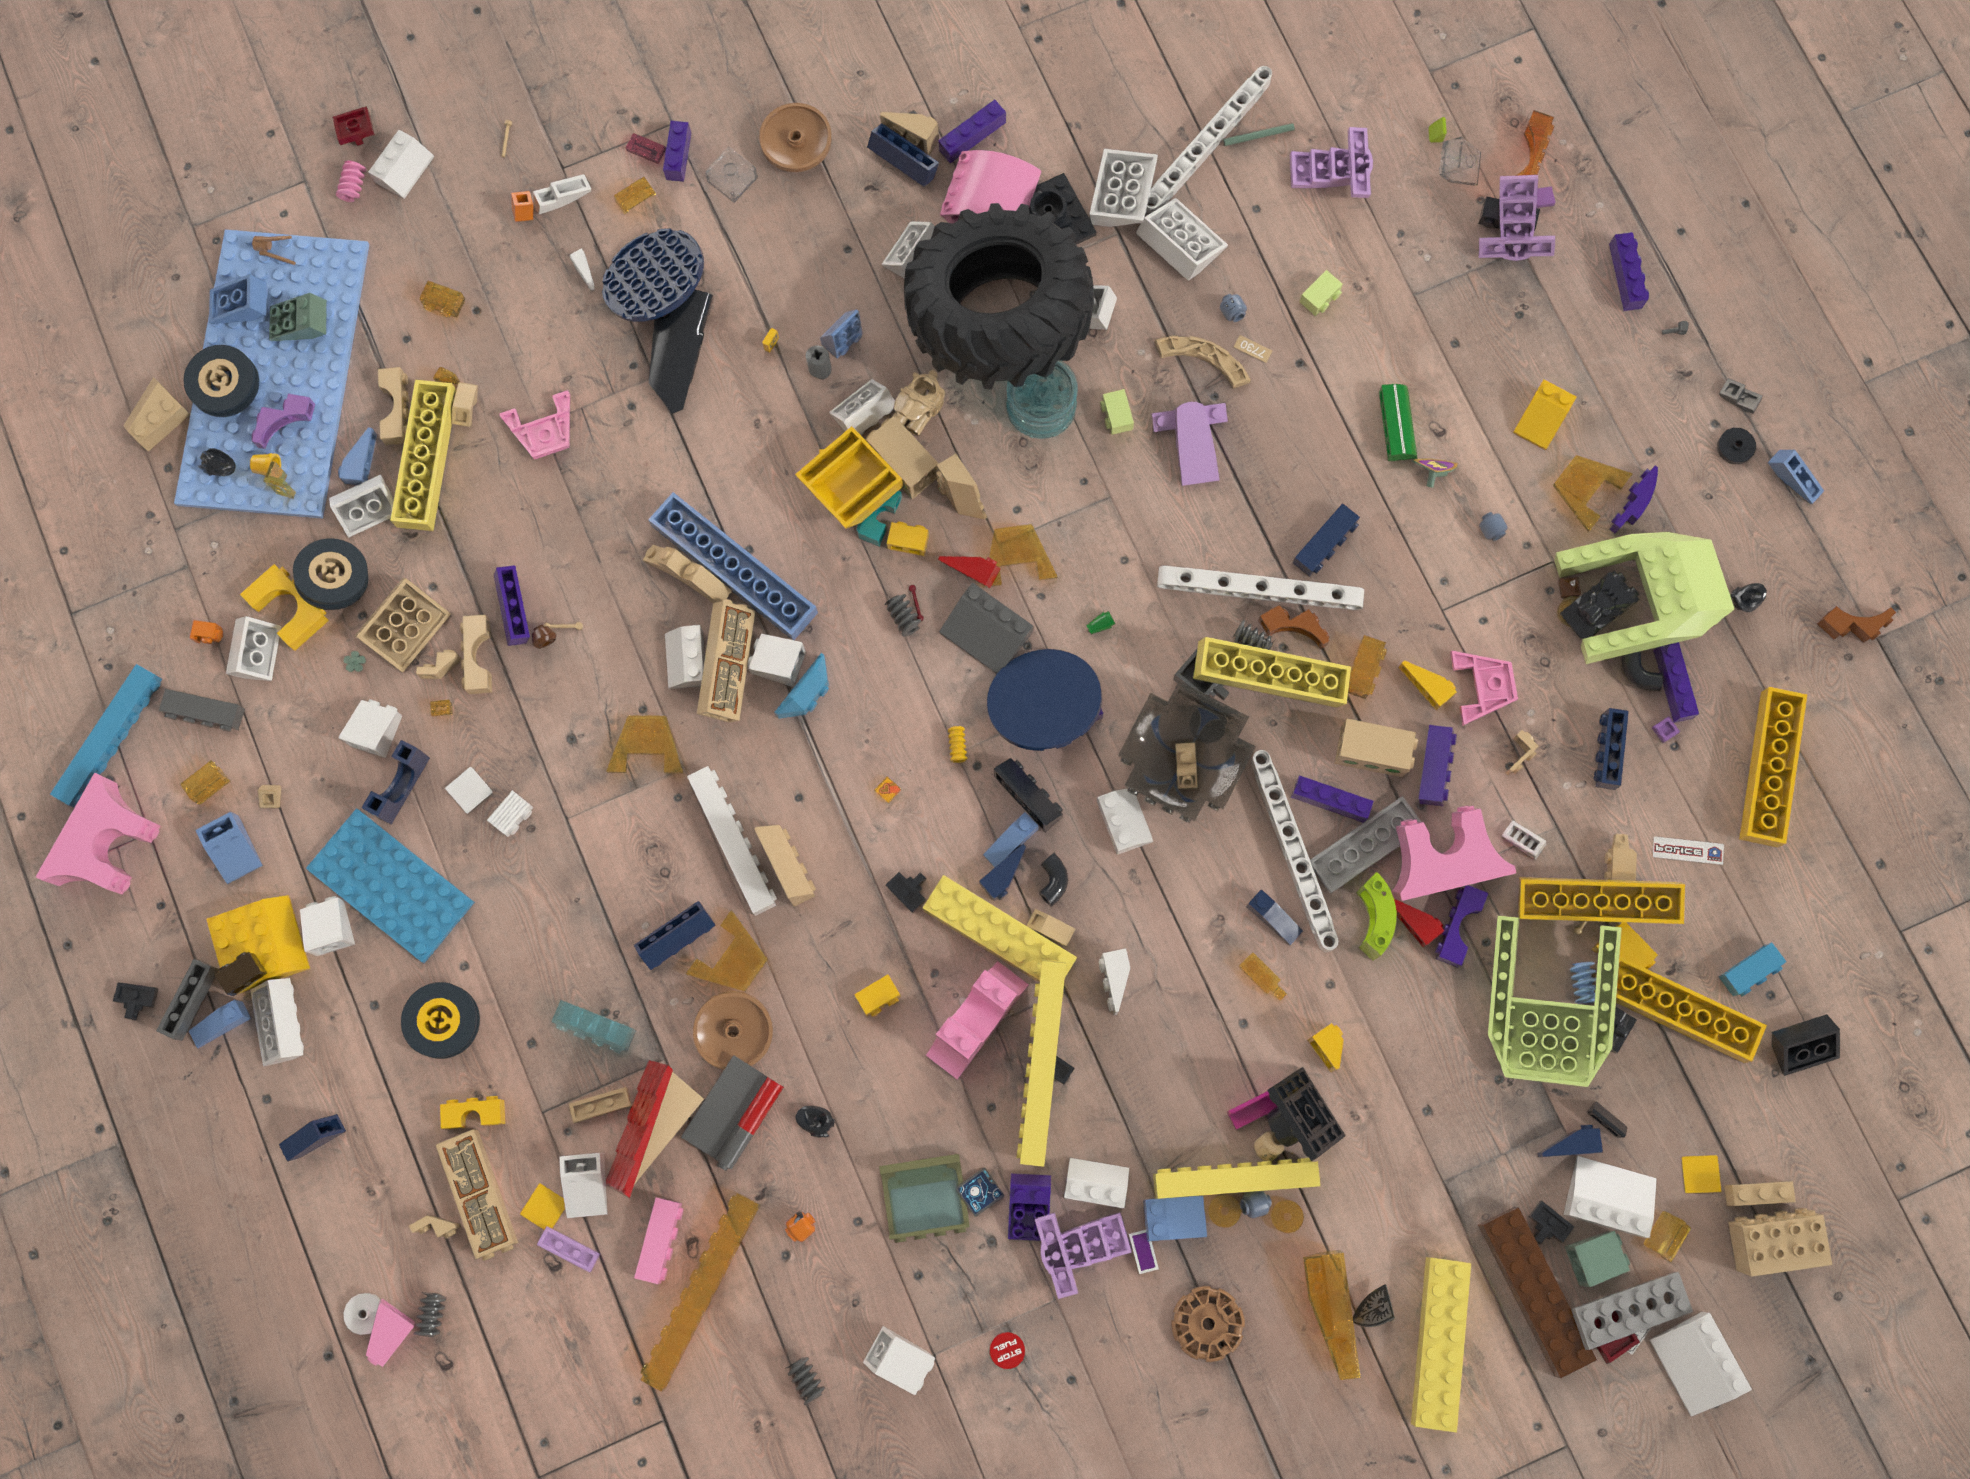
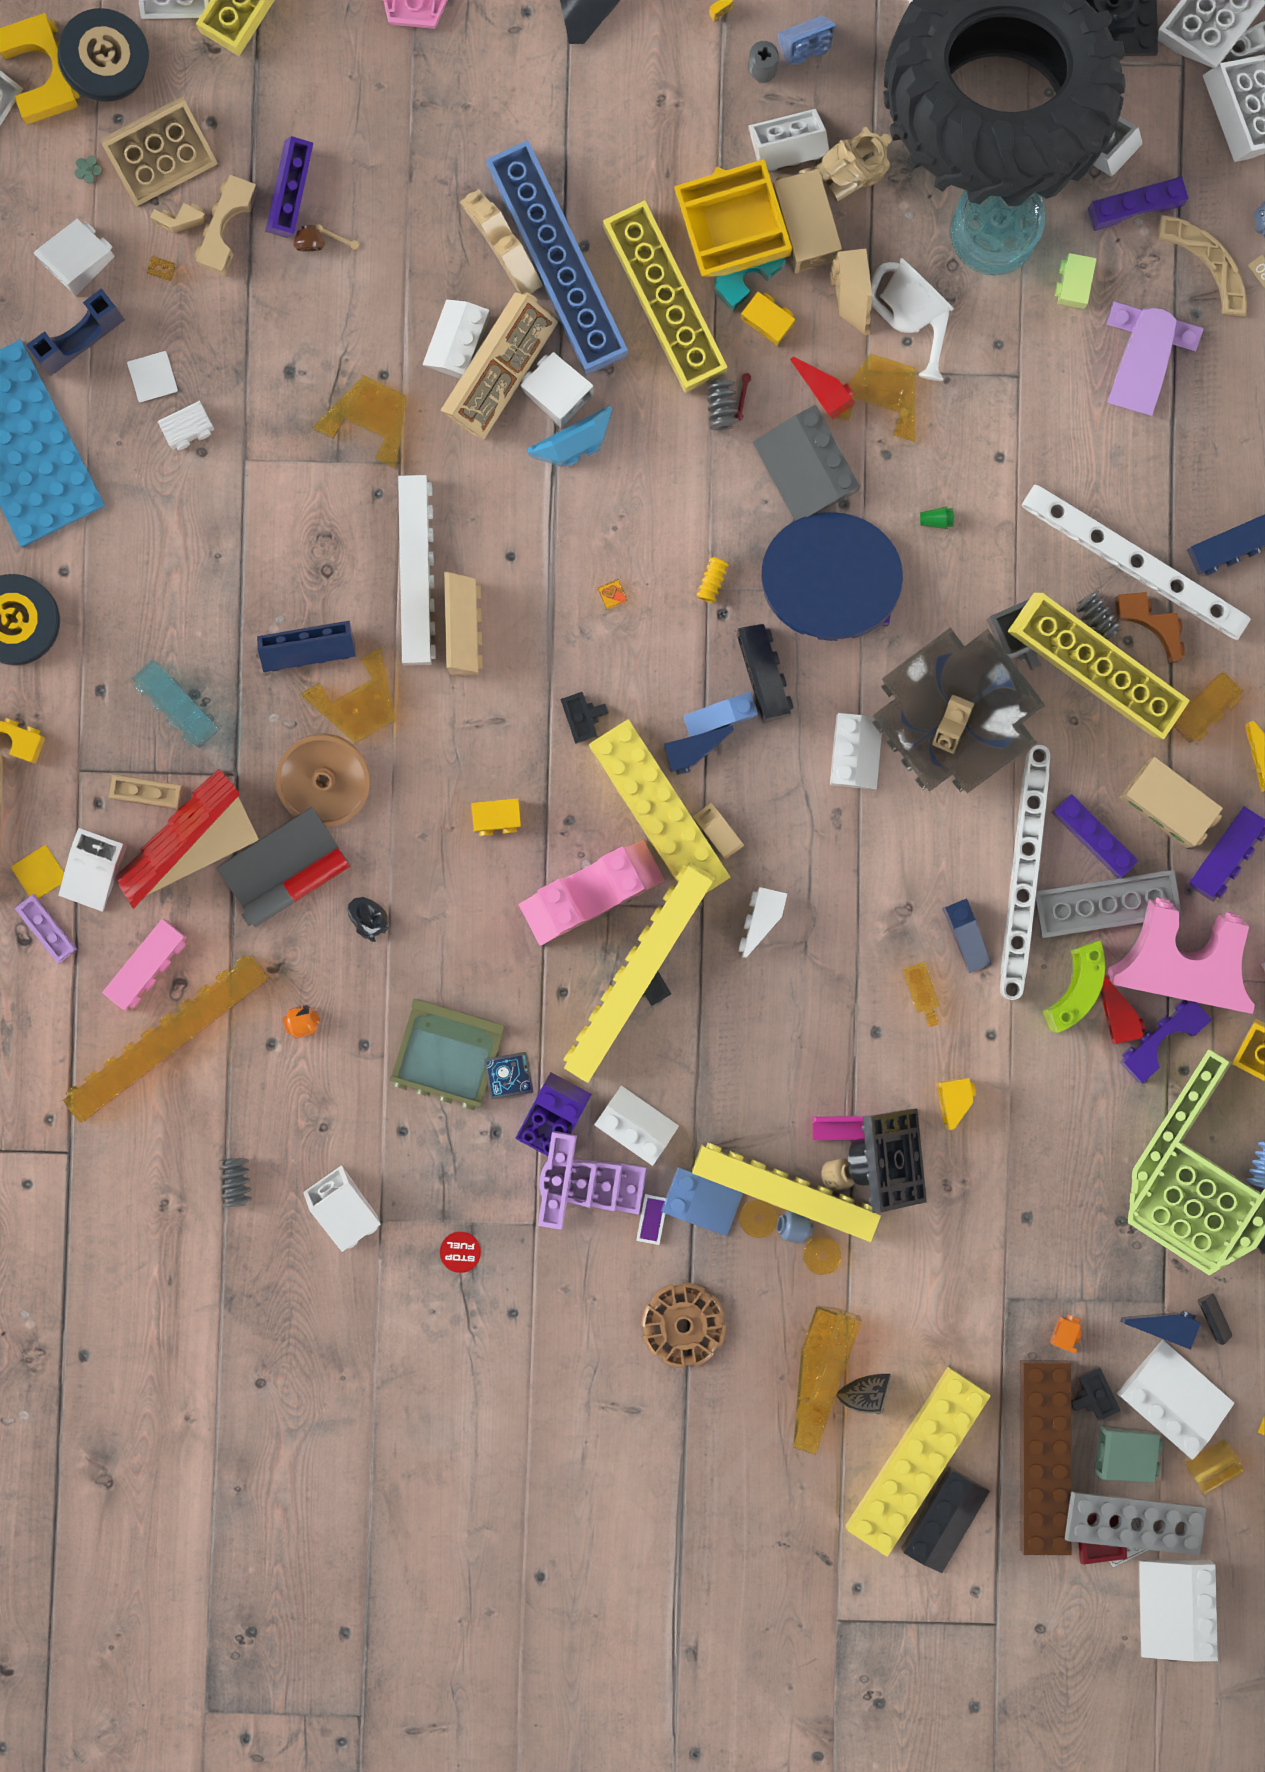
camera: 20 degrees right, 10 degrees up
(825, 557) = (664, 296): none -> light yellow brick
(1010, 481) = (913, 306): none -> white piece
(1057, 880) = (751, 782): black cylinder -> none
(1147, 327) = (1155, 197): none -> dark purple arch
(1485, 1381) = (945, 1520): none -> black slope
(1503, 1186) = (1067, 1333): none -> orange brick

